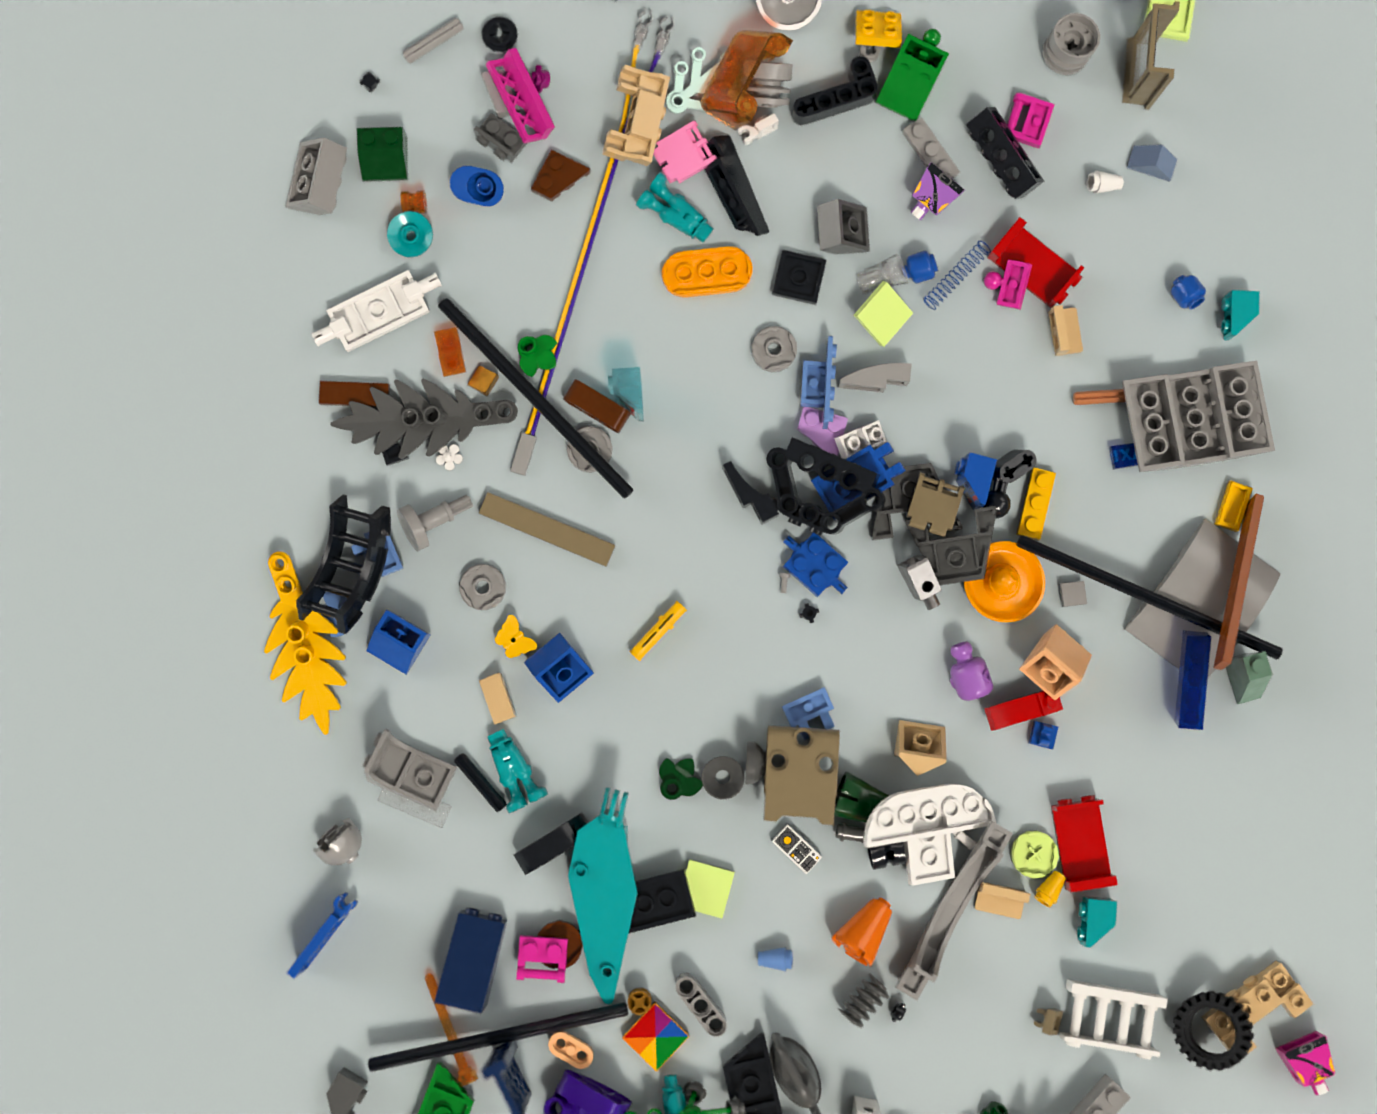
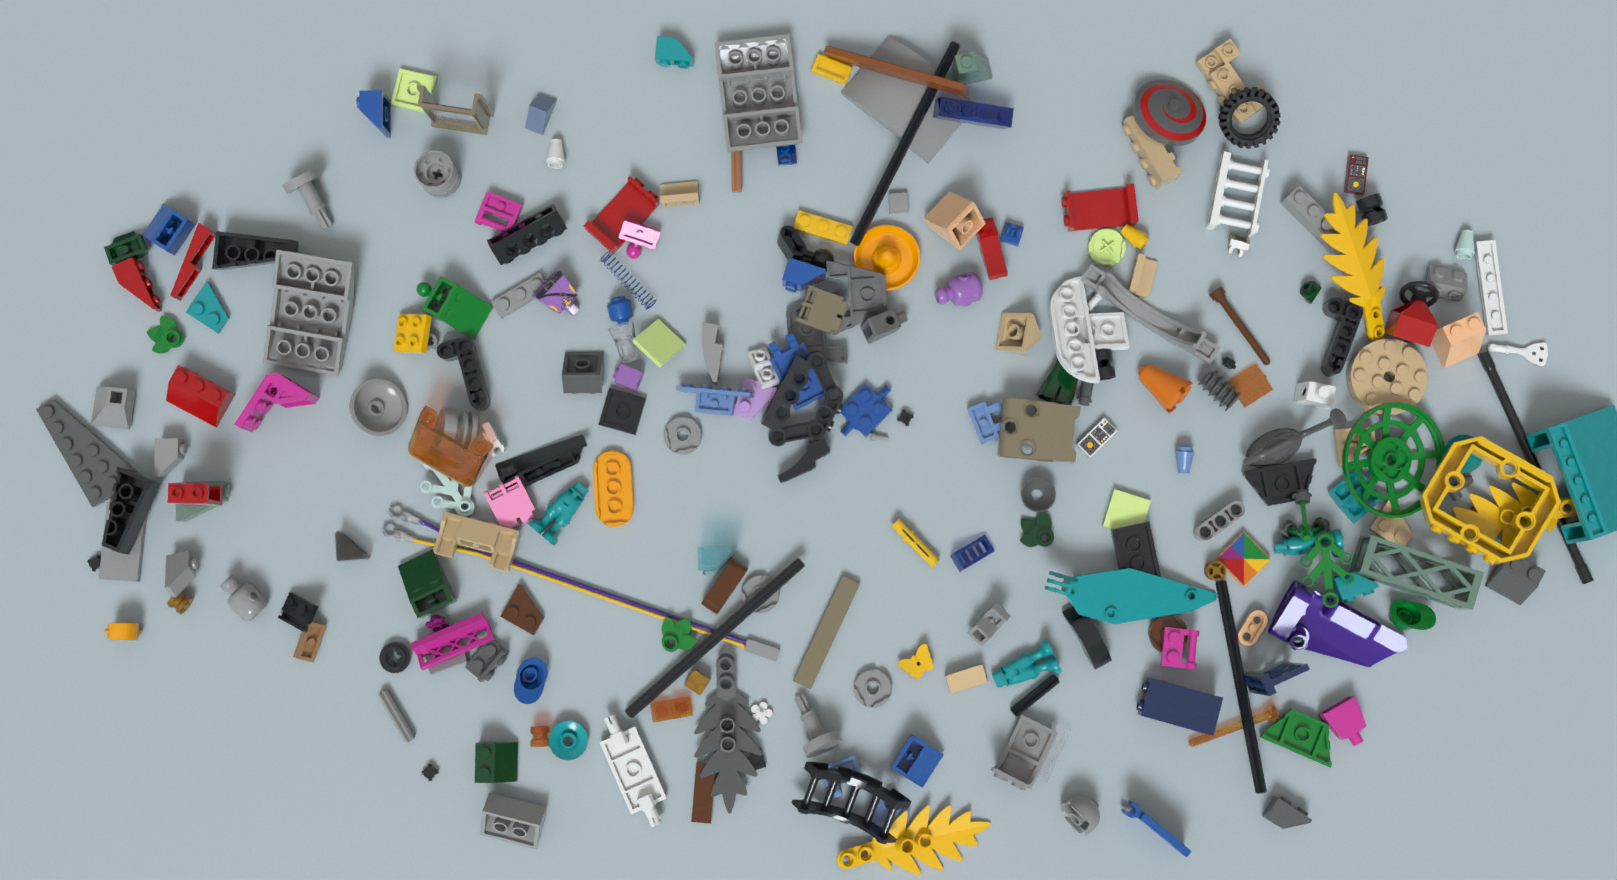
camera: 85 degrees left, 0 degrees up
(558, 667) = (942, 626): blue slope -> none
(562, 722) = (988, 624): none -> light grey brick
(583, 63) = (426, 584): none -> dark green slope
(632, 687) = (958, 560): none -> clear blue slope
(754, 763) = (1027, 467): dark grey piece -> none
(840, 280) = (628, 377): none -> medium lavender brick
(872, 1041) = (1251, 385): none -> clear orange piece
(981, 998) = (1219, 296): none -> reddish brown piece
(1097, 919) = (1159, 201): teal slope -> none
(1162, 906) = (1152, 154): none -> tan wedge
(1188, 291) = (653, 92): blue head -> none
(1211, 927) = (1169, 112): none -> dark grey dish
(1309, 1061) = (1274, 45): dark pink torso -> none

